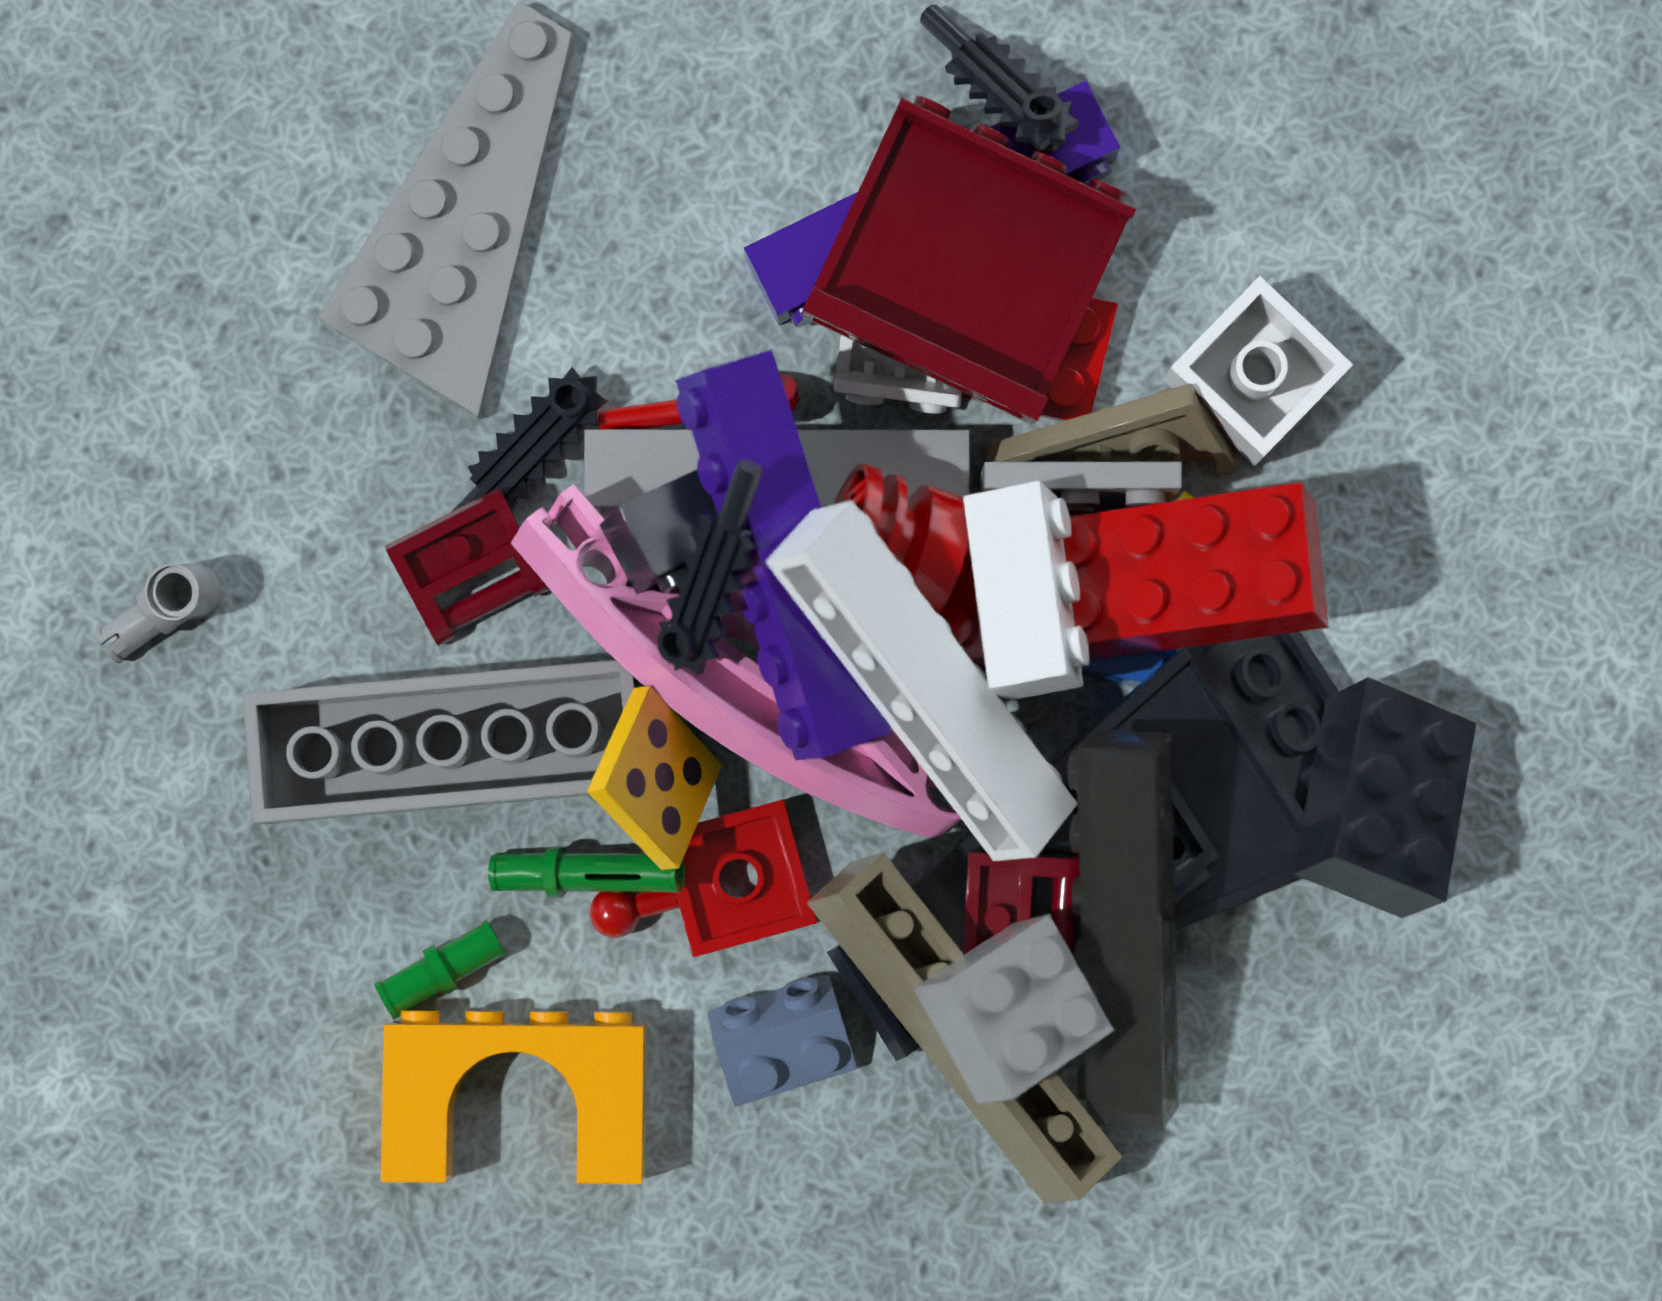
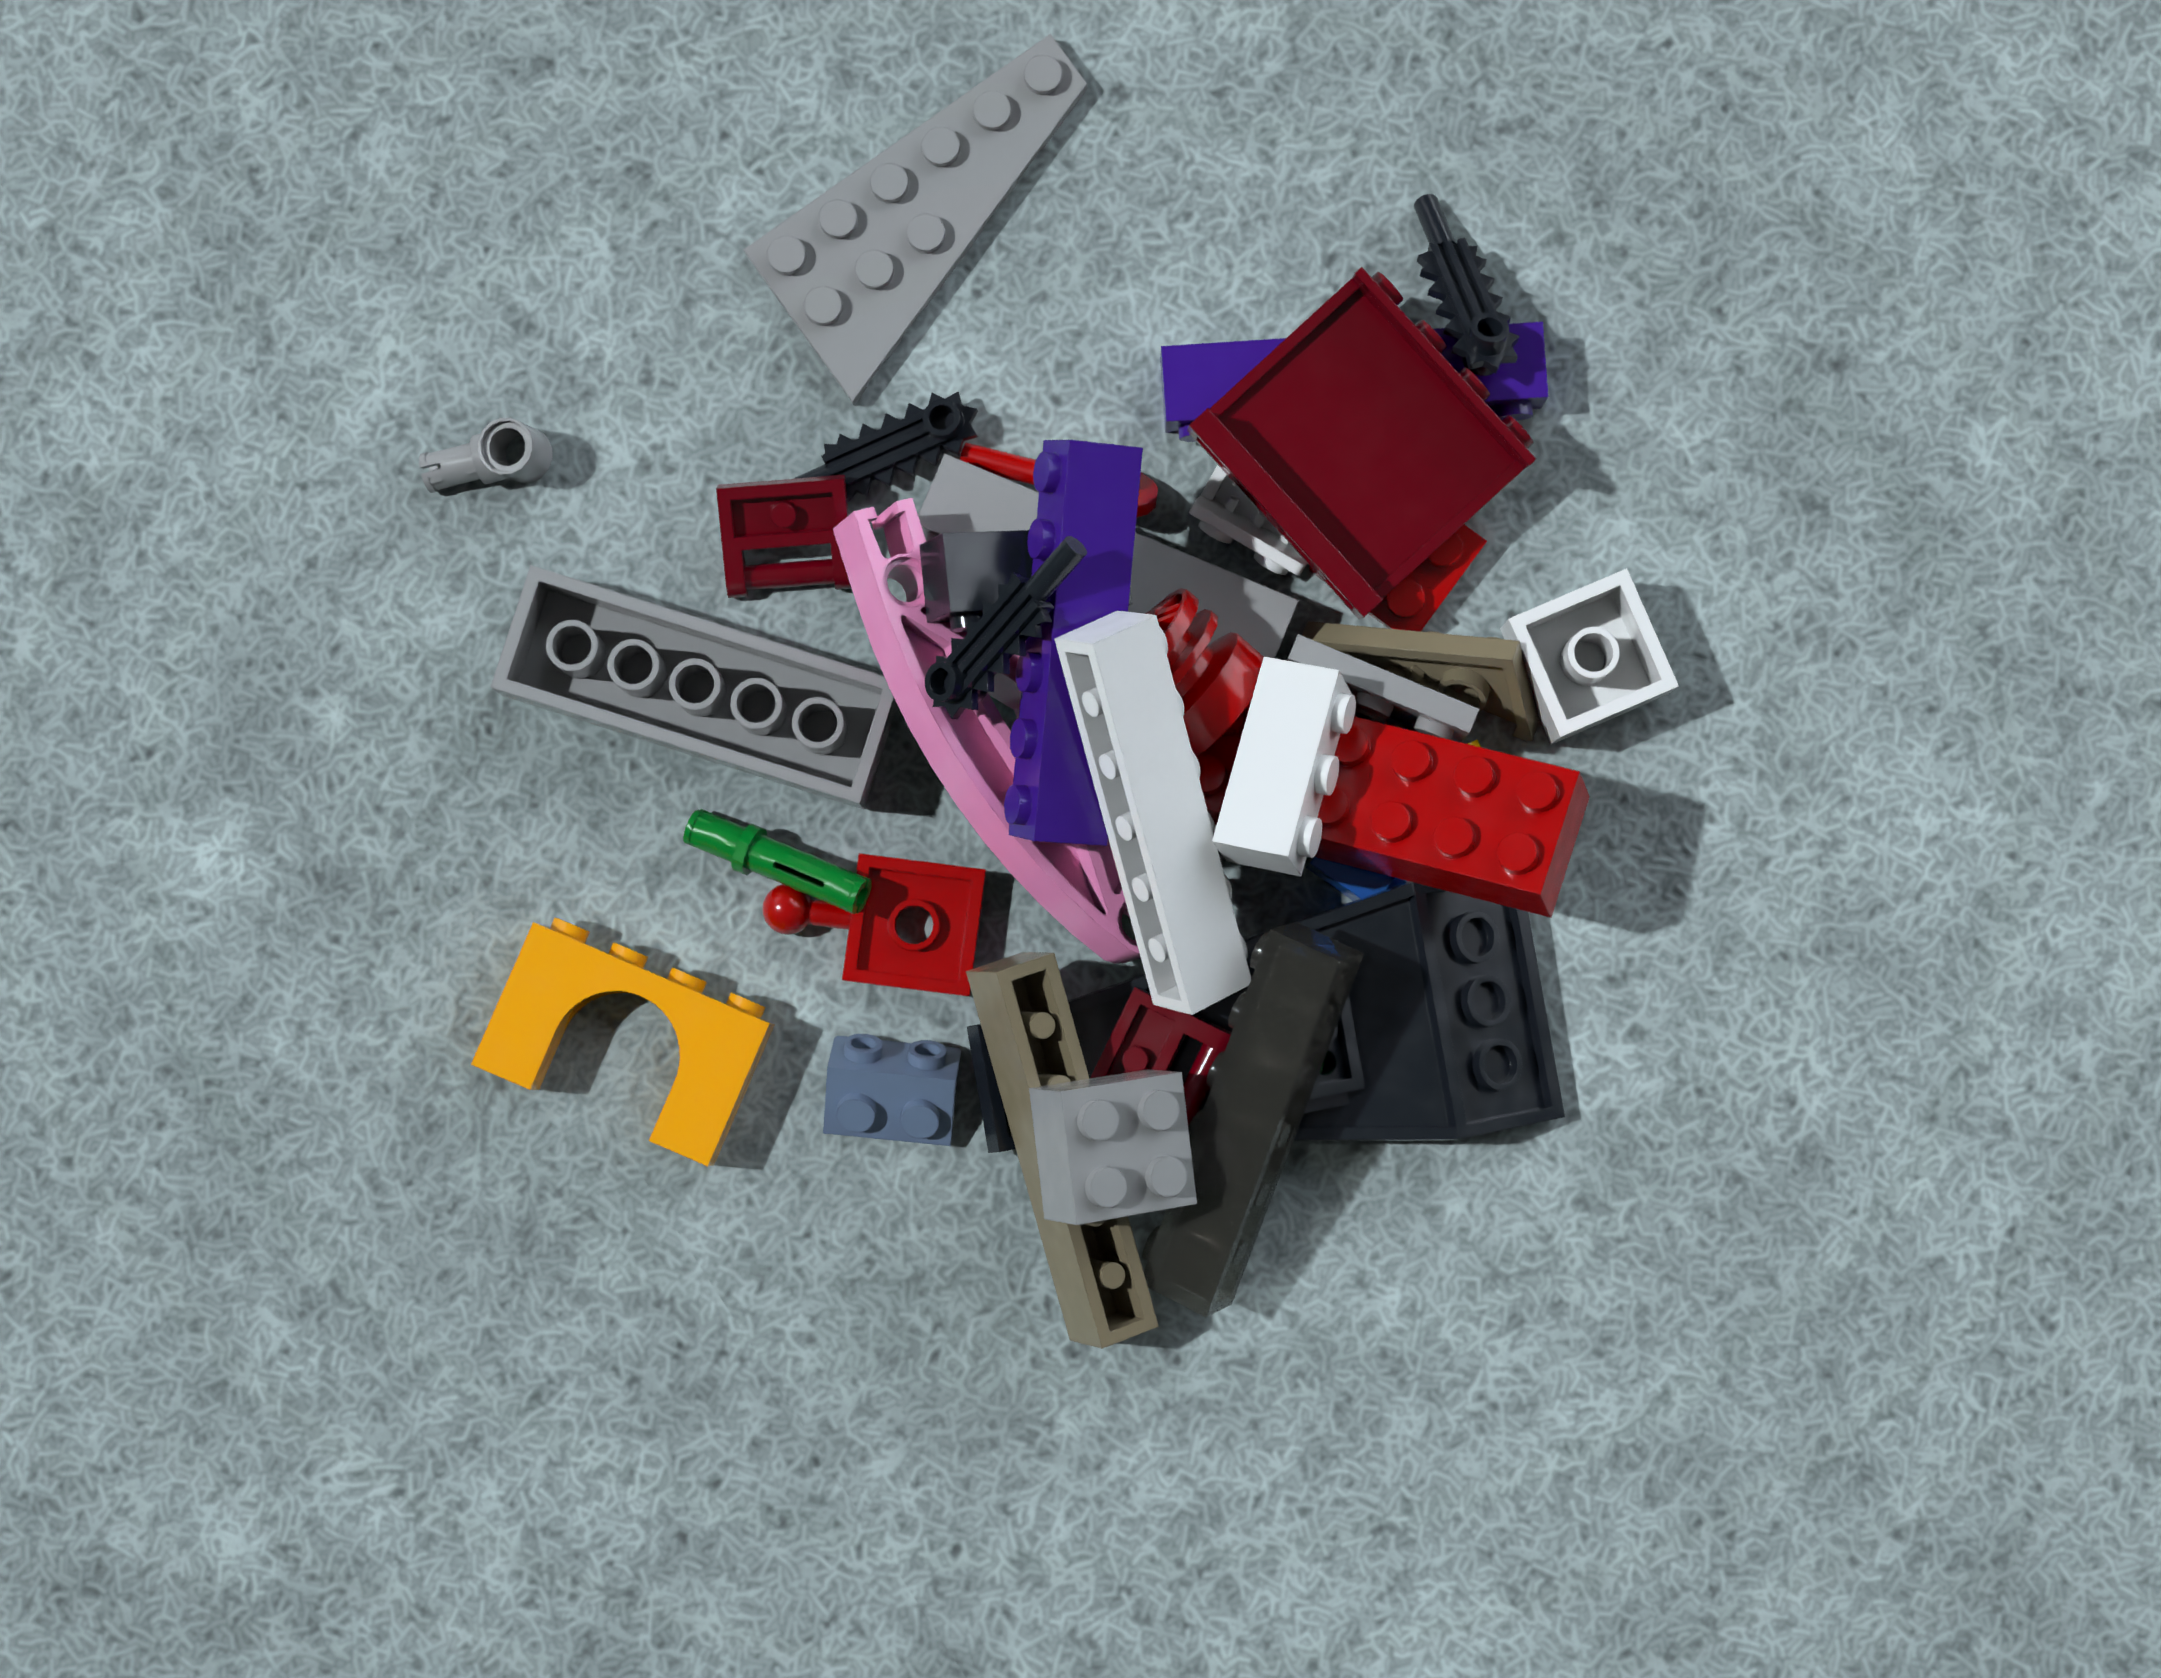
camera: 25 degrees right, 0 degrees up
(440, 969) = (606, 894): green pin -> none
(655, 778) = (874, 799): yellow tile -> none
(1385, 798) = (1539, 1098): black brick -> none

